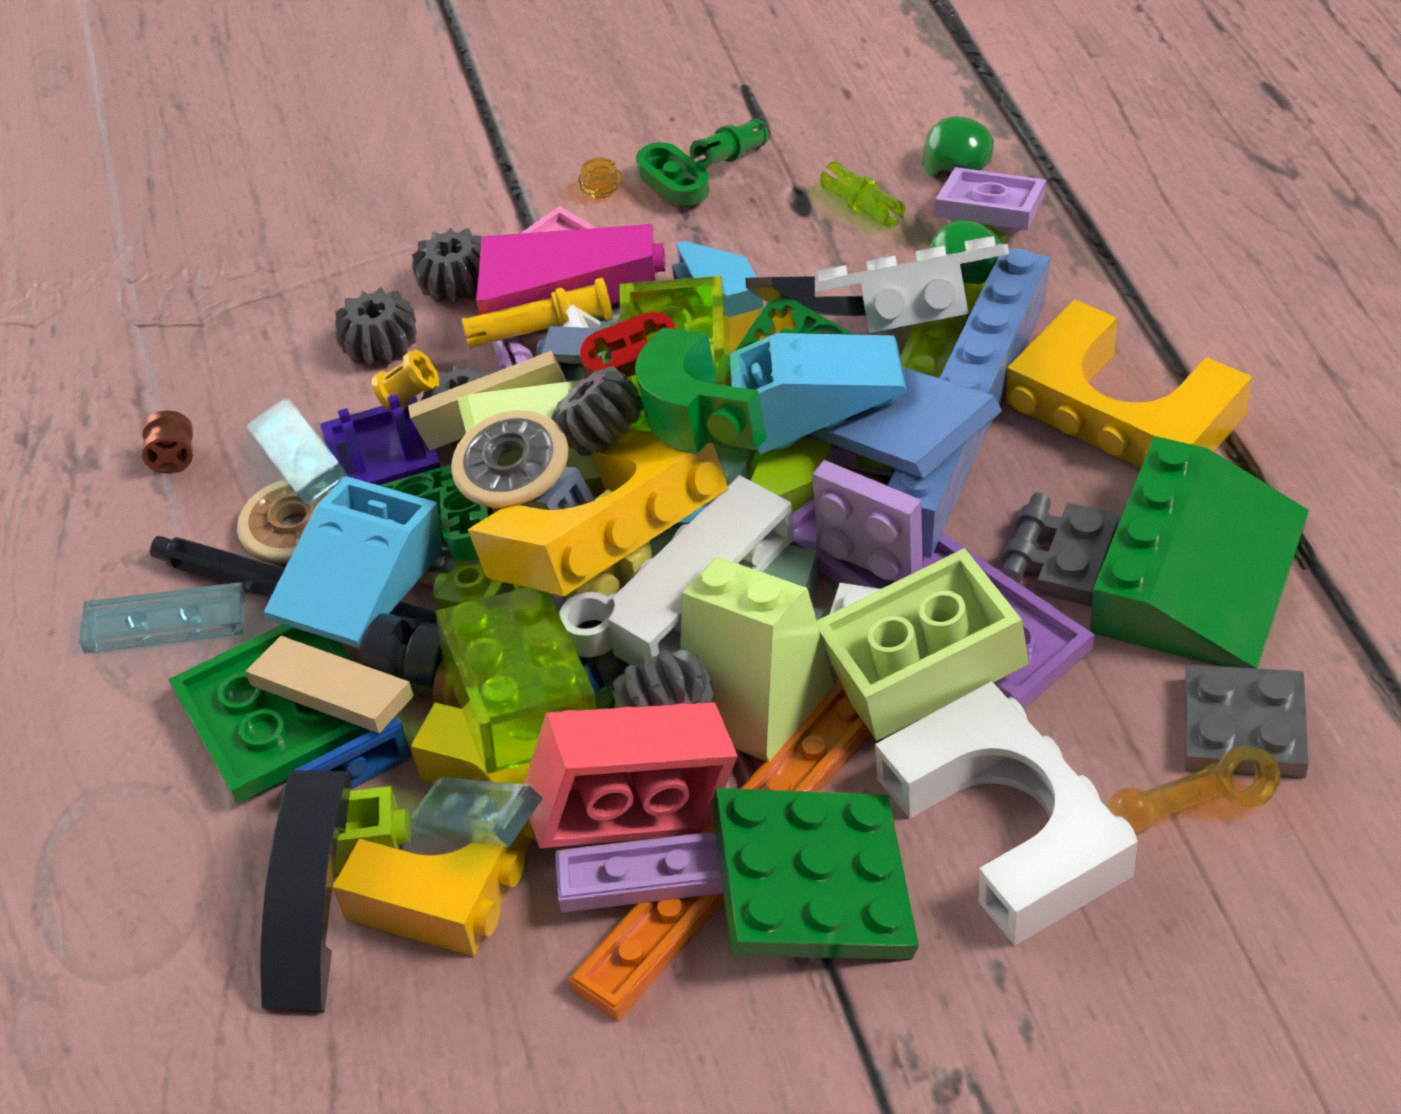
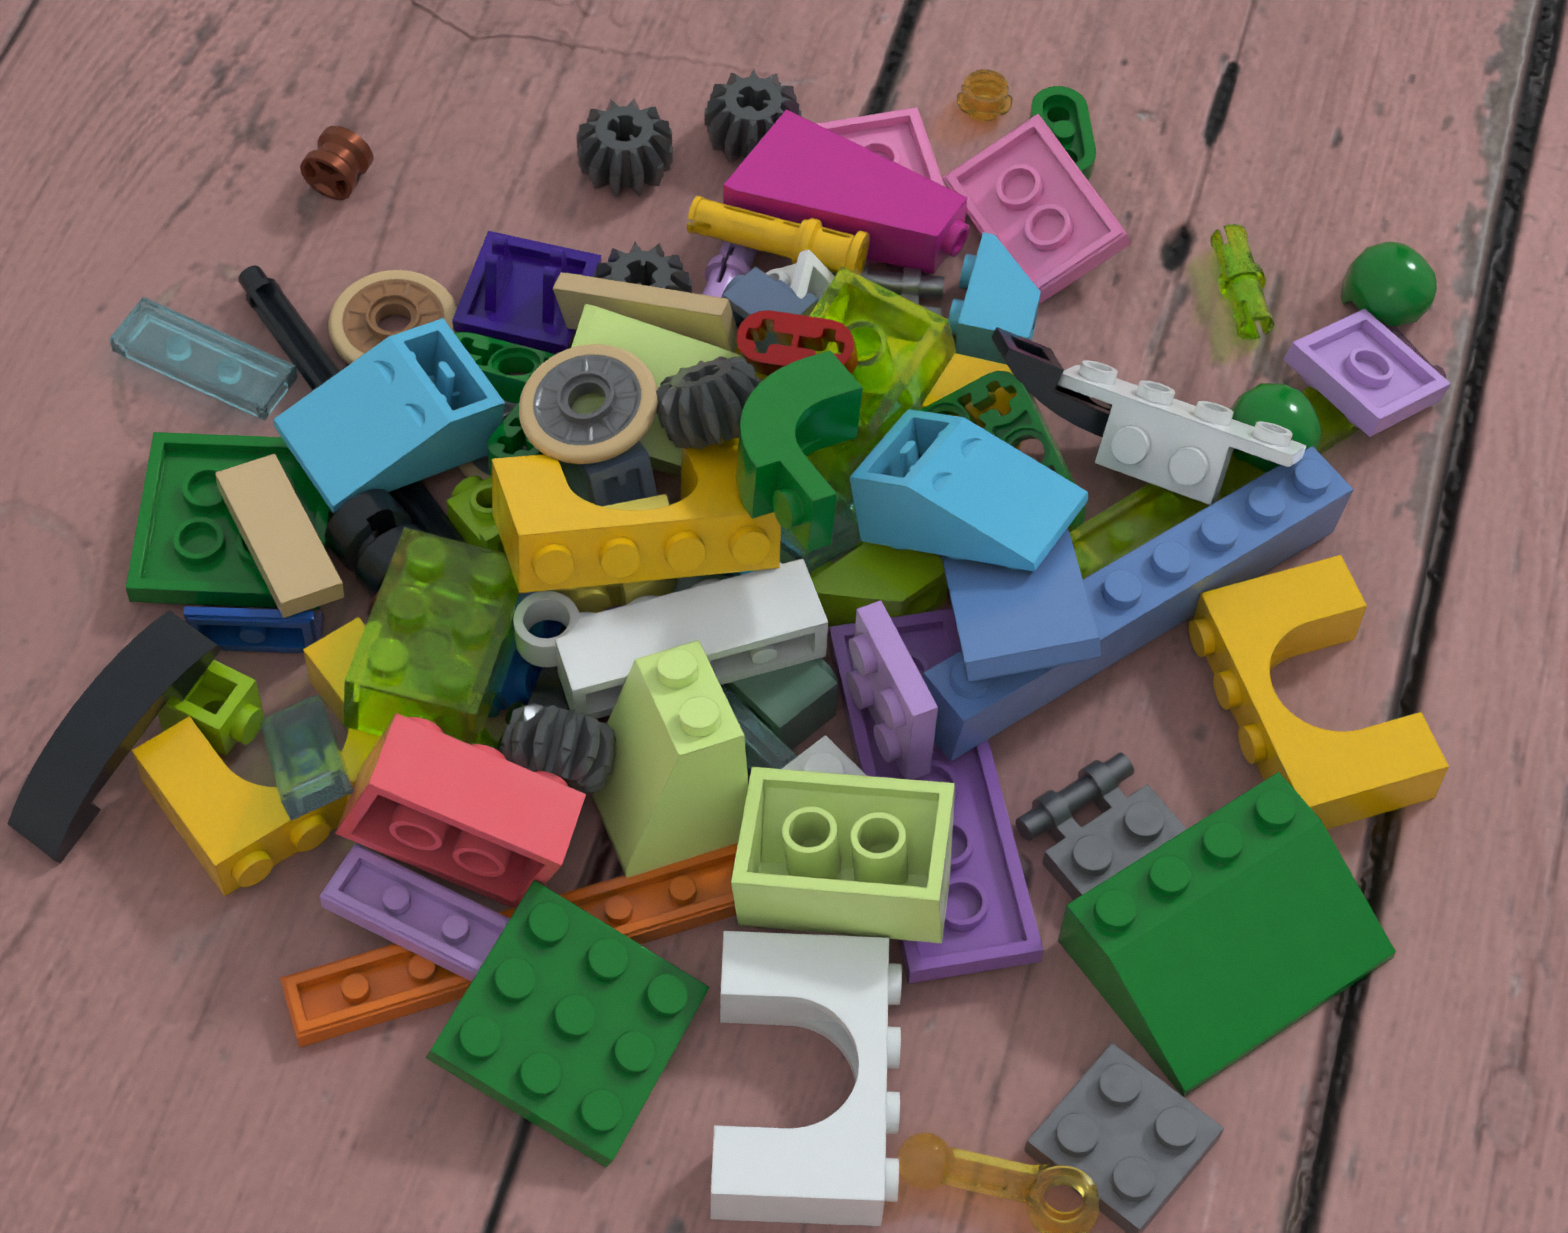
camera: 25 degrees right, 10 degrees up
(296, 450) = (444, 248): clear light blue tile -> none
(406, 379) = (587, 238): yellow bush -> none
(698, 211) = (1038, 207): none -> bright pink tile
(729, 143) = (1145, 135): green pin -> none

